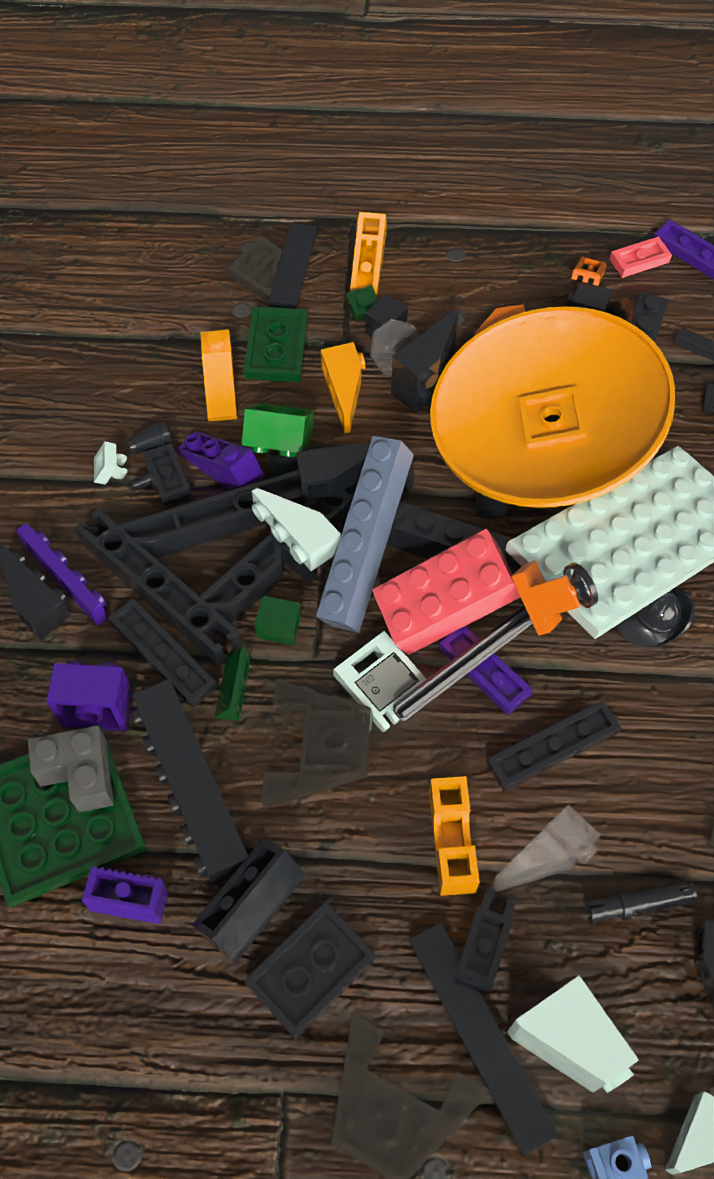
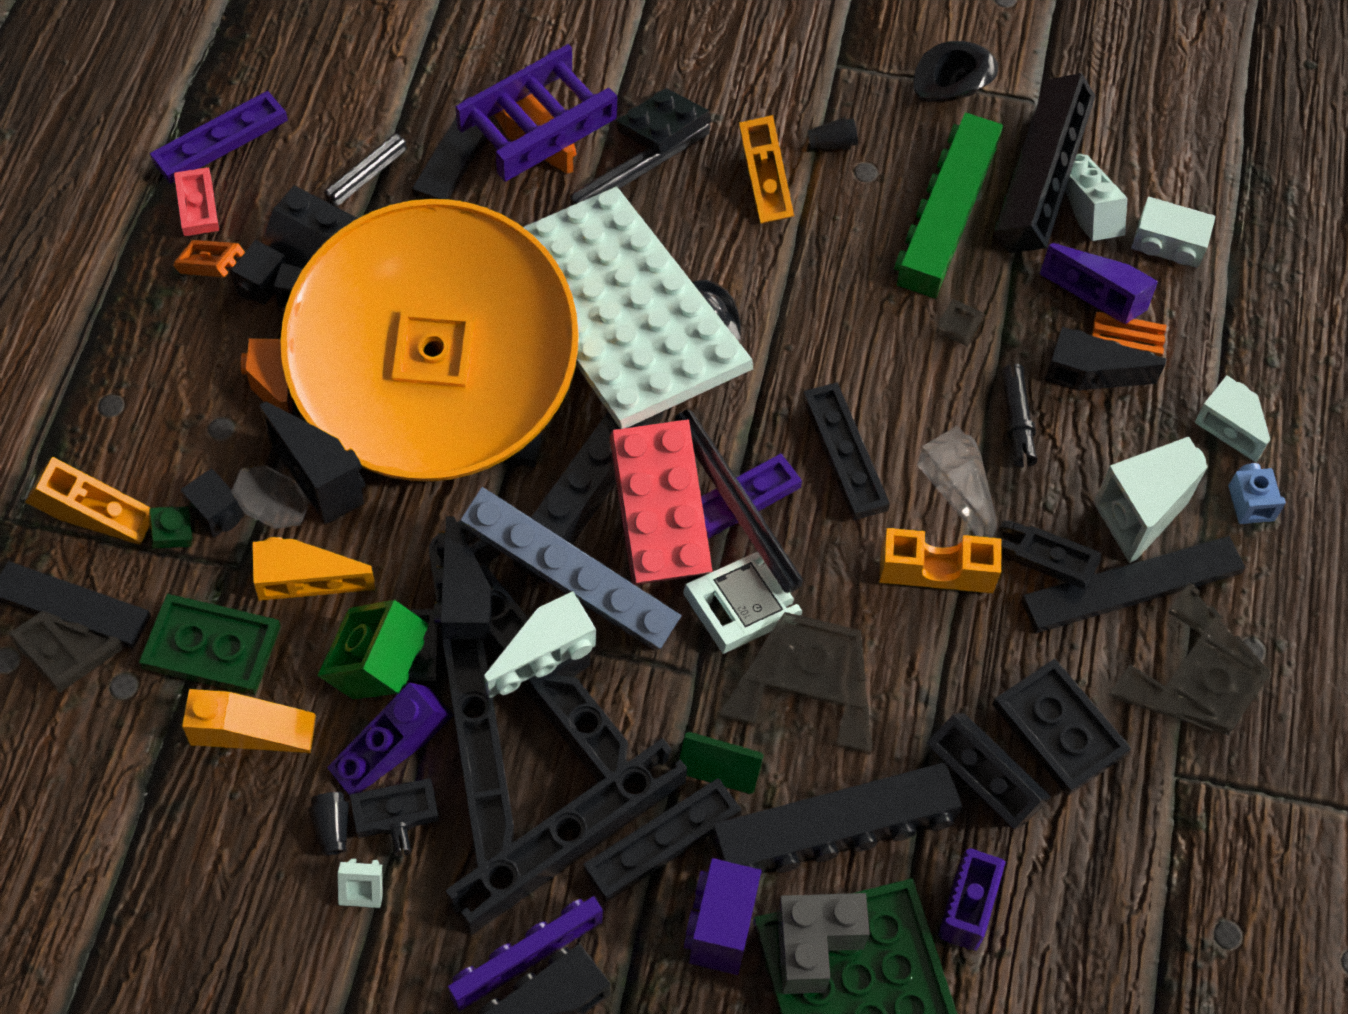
camera: 85 degrees left, 0 degrees up
(278, 620) = (648, 695): dark green panel -> none
(549, 598) = (712, 384): orange piece -> none

